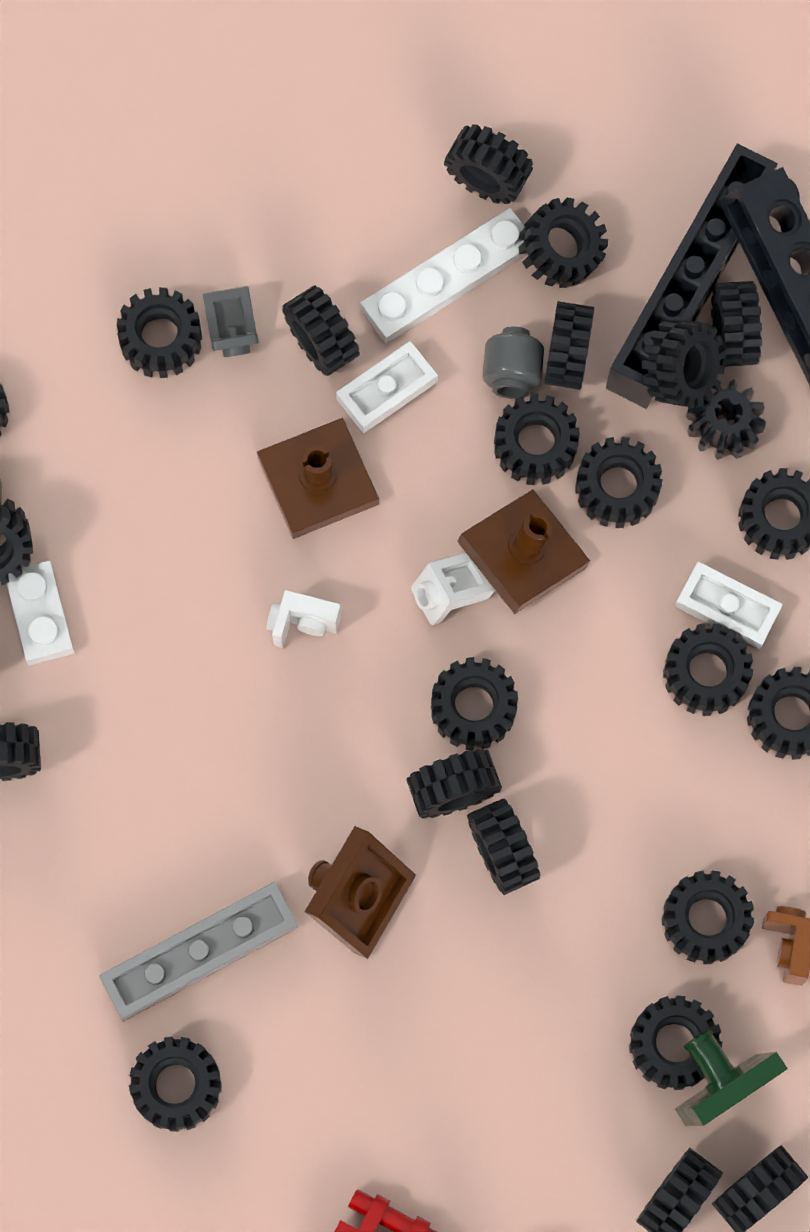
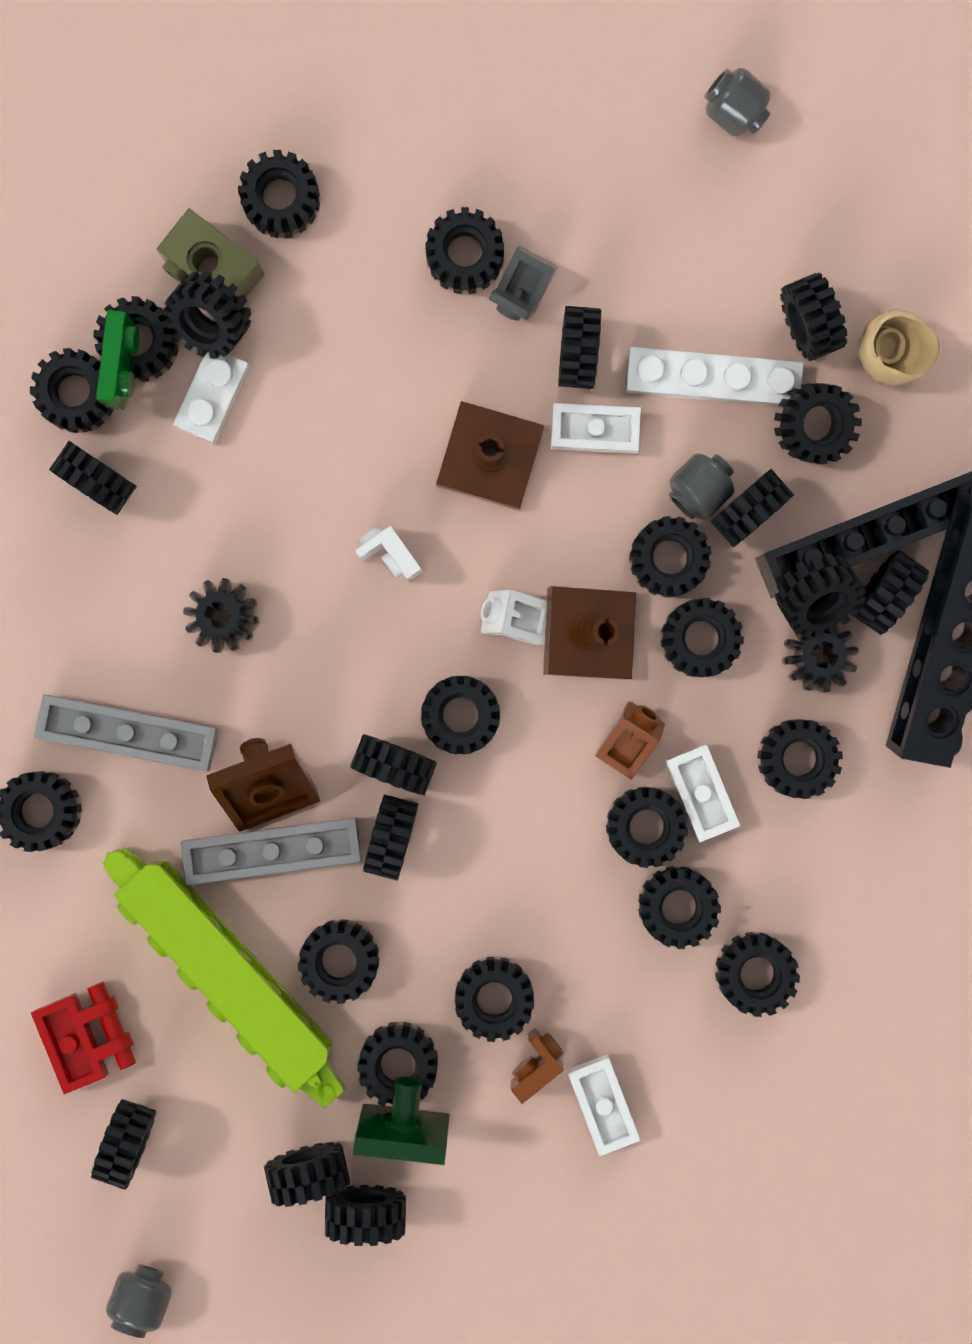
camera: 35 degrees right, 15 degrees up
(206, 768) = (210, 627): none -> black gear
(285, 54) = (738, 102): none -> dark grey head
(409, 949) = (271, 851): none -> light grey plate
(461, 1086) = (226, 973): none -> lime hinge
(556, 966) = (333, 987): none -> black tyre
(576, 138) = (898, 348): none -> tan hair
(633, 609) = (631, 739): none -> dark orange bracket

